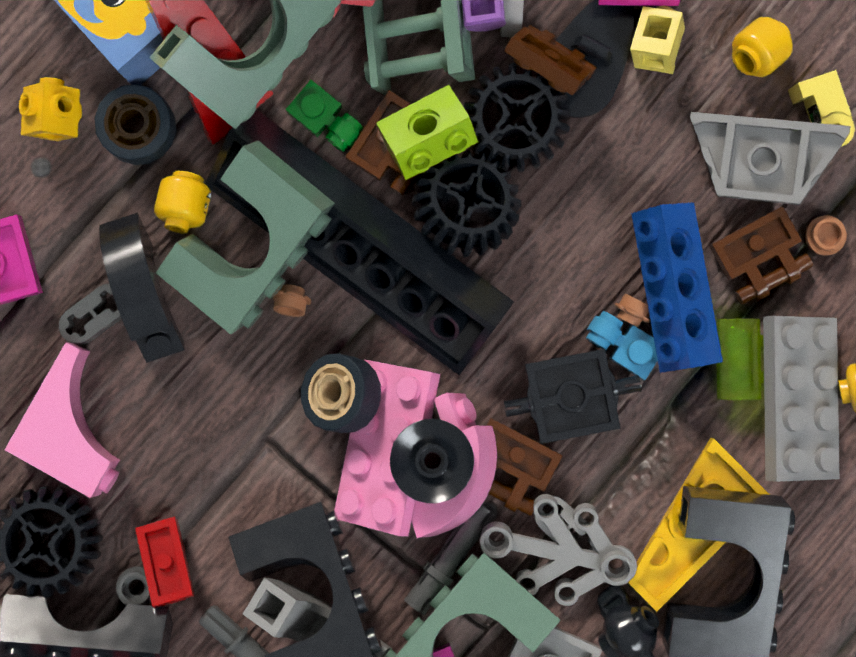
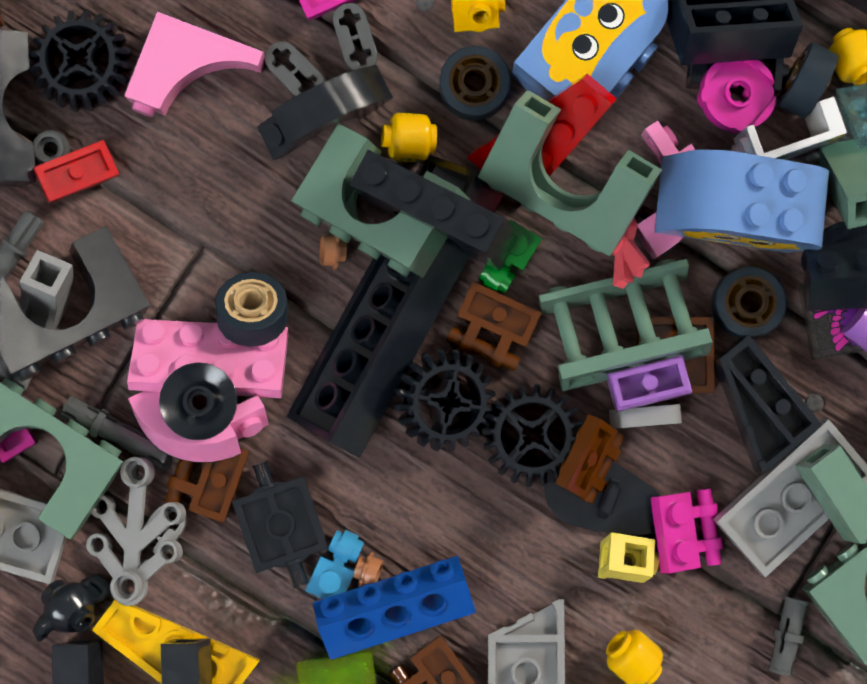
camera: 85 degrees right, 0 degrees up
(65, 235) = (346, 40): none -> dark grey beam
(234, 218) = (399, 190): none -> black arch
(427, 132) = (502, 335): lime brick -> none

